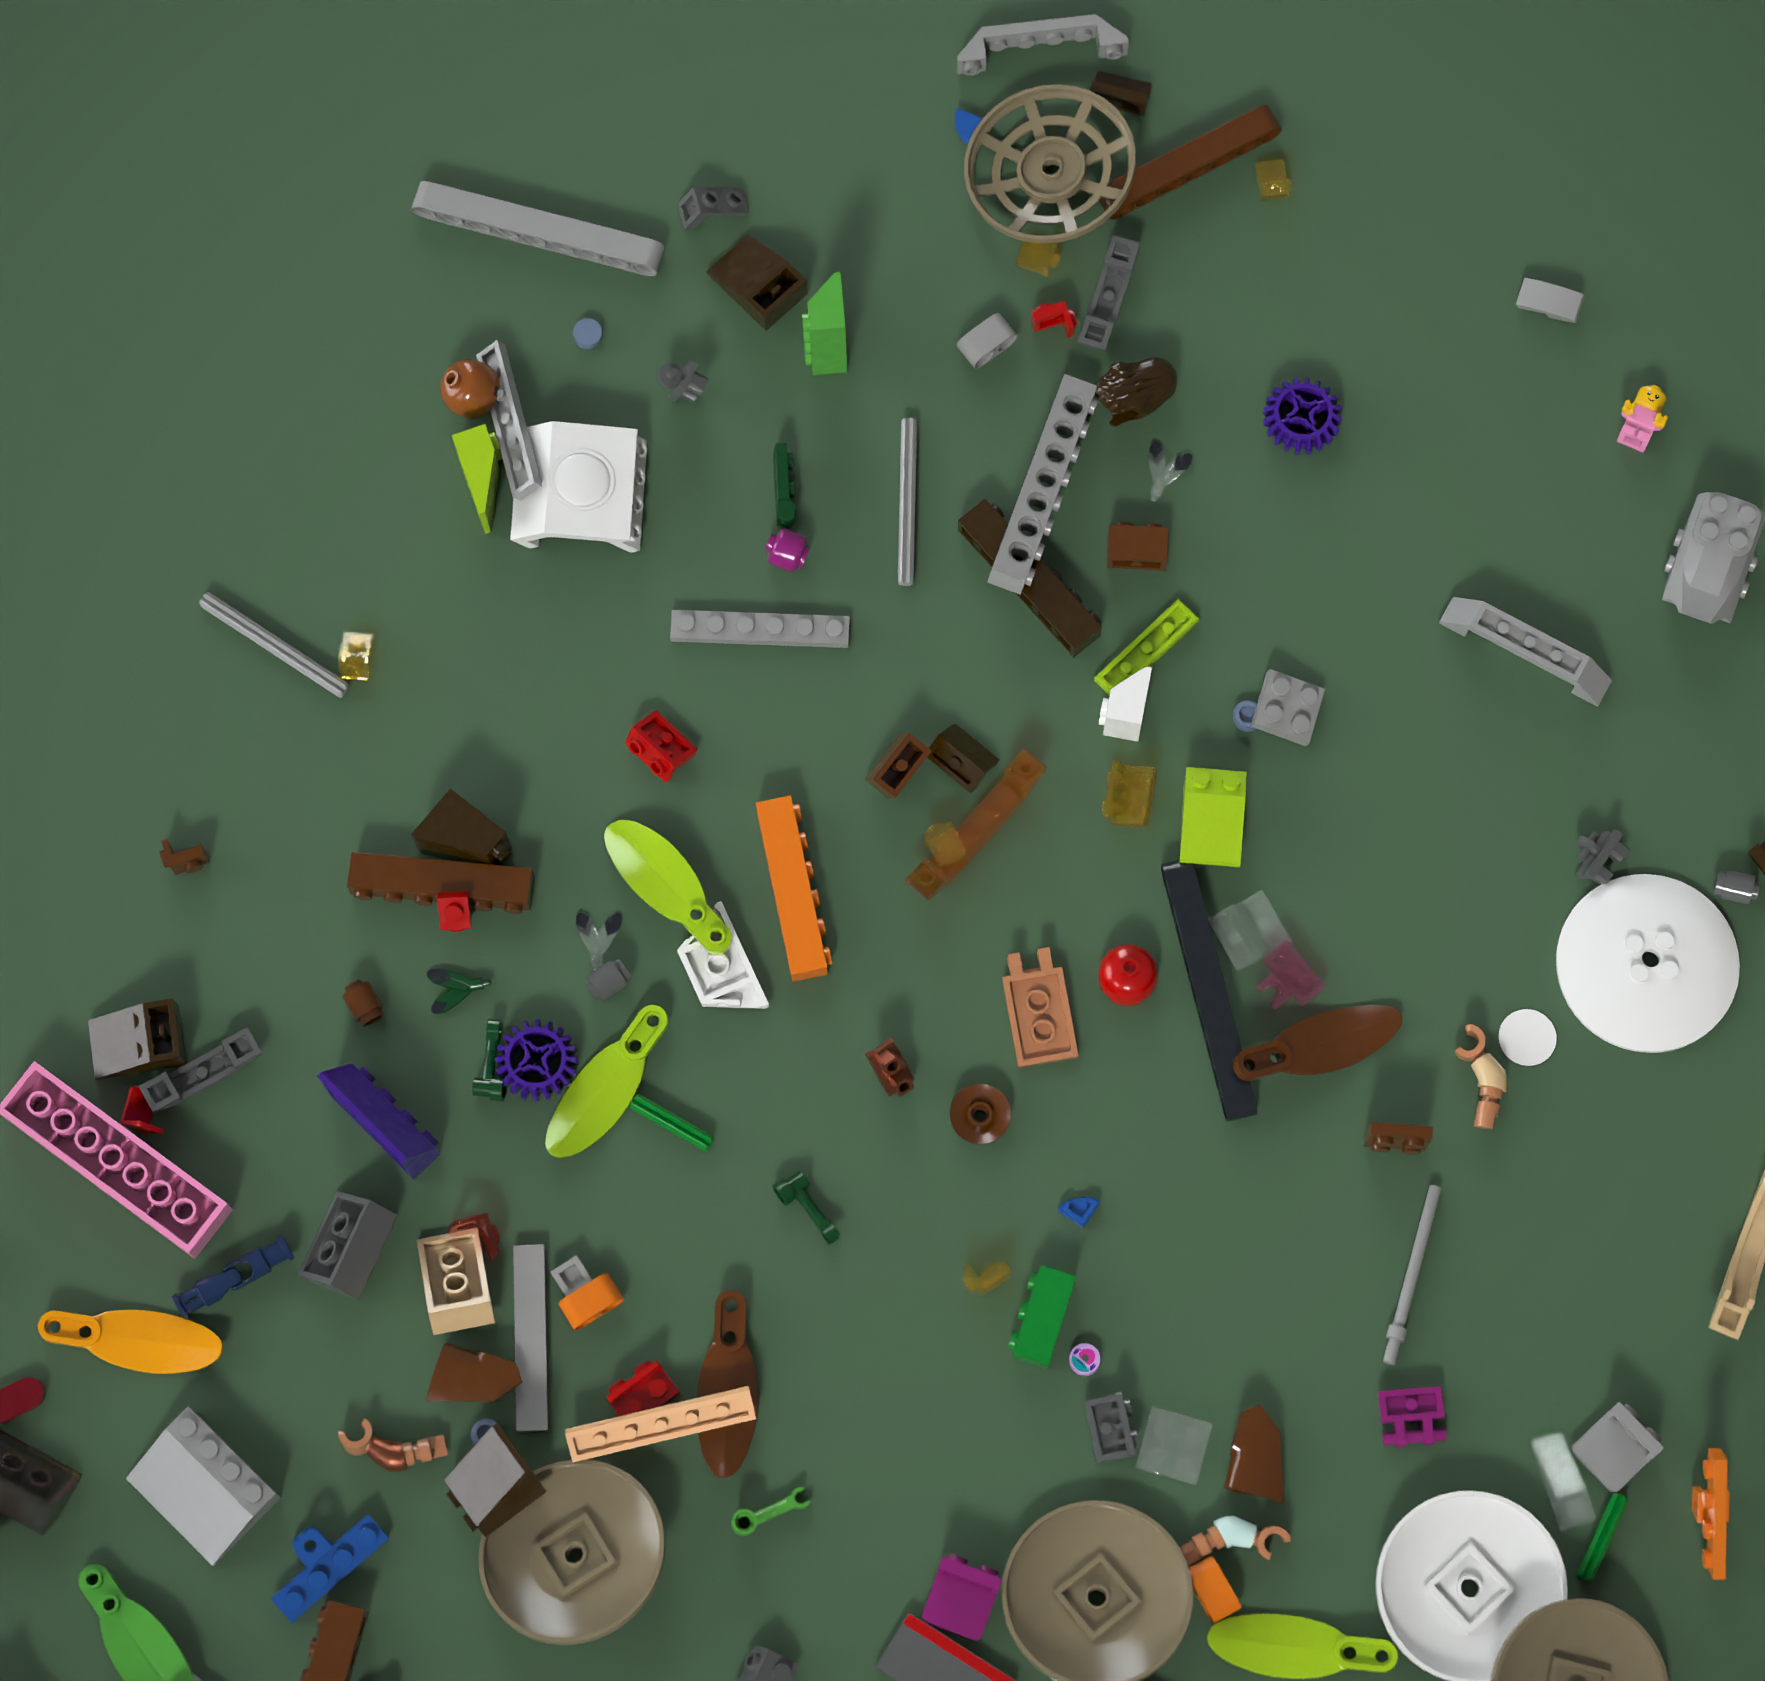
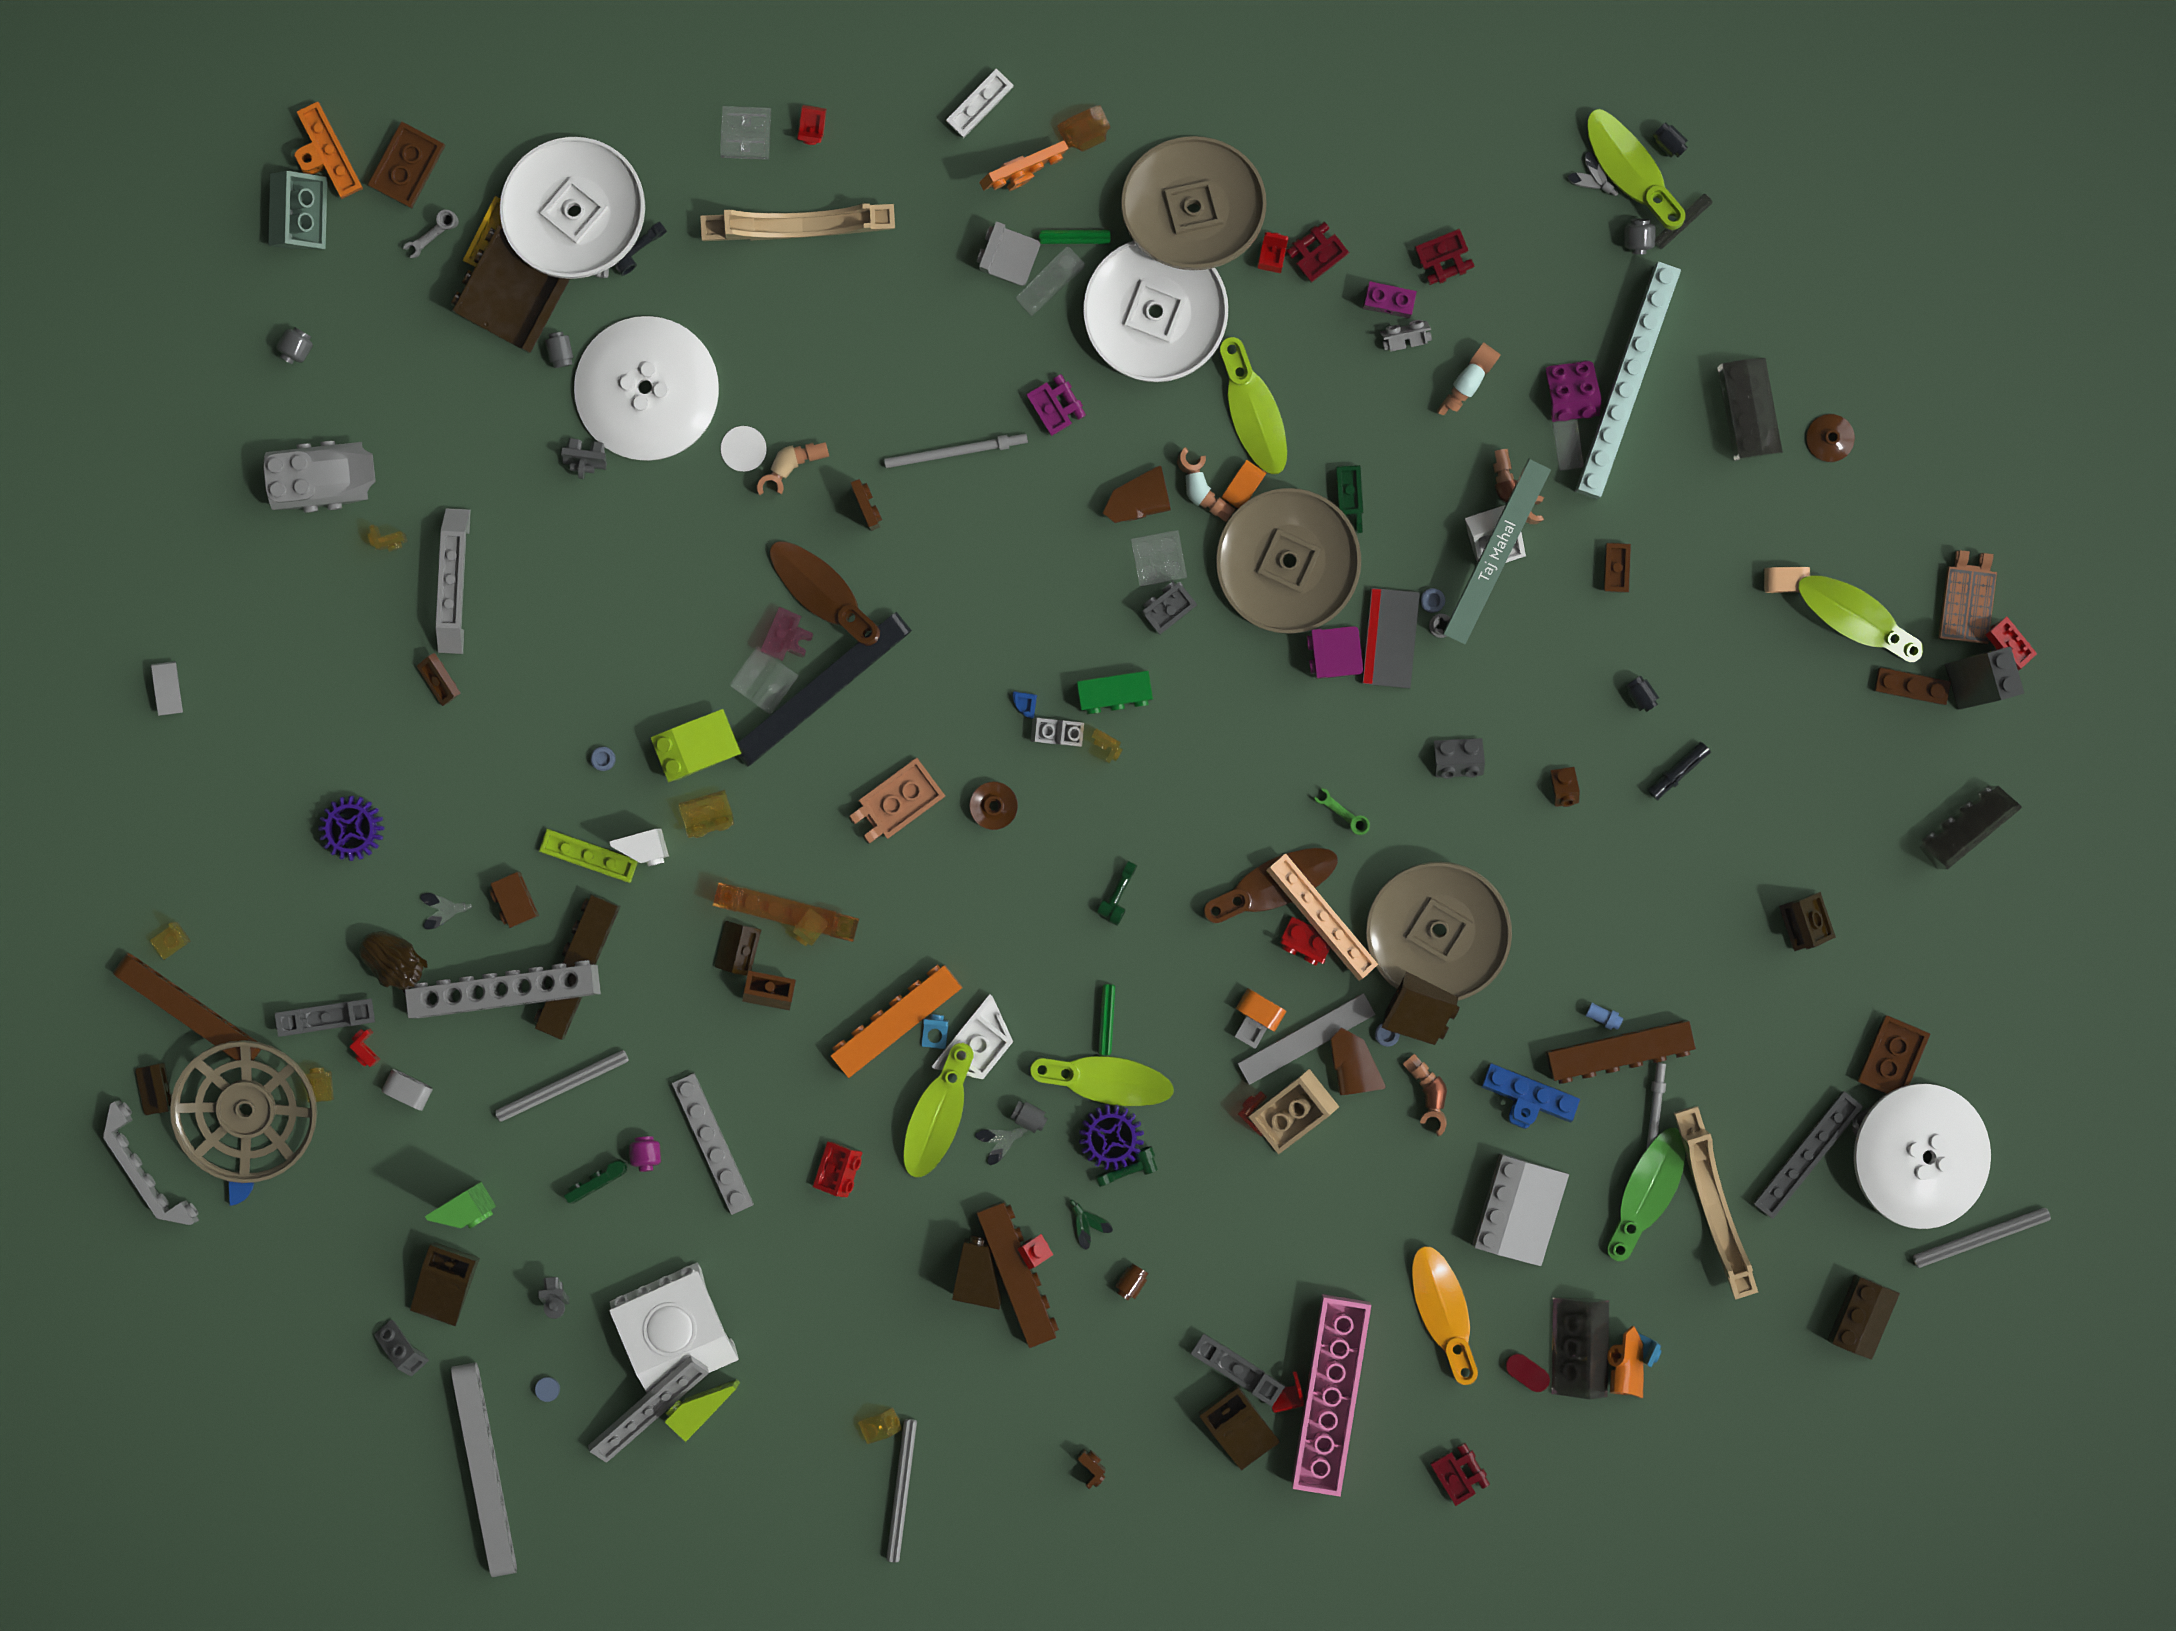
camera: 120 degrees left, 15 degrees up
(213, 1288) = (1381, 1276): dark blue piece -> none
(347, 1244) = (1307, 1200): dark grey slope -> none
(380, 1118) = (1209, 1224): dark purple slope -> none
(469, 388) = (637, 1451): dark orange cylinder -> none
(768, 931) = (935, 1022): none -> dark azure bracket
(891, 1068) = (993, 883): copper hips -> none
(1028, 1228) = (1057, 732): none -> light grey slope
(1084, 1359) = (1129, 648): tile -> none
(1128, 975) = (839, 751): red cylinder -> none
(1287, 707) = (583, 732): light grey plate -> none
(1422, 582) = (438, 679): none -> reddish brown plate
(1601, 605) = (392, 541): none -> clear yellow bracket
(1643, 417) = (229, 577): piece -> none
(1727, 1614) = (1085, 129): none -> clear orange slope

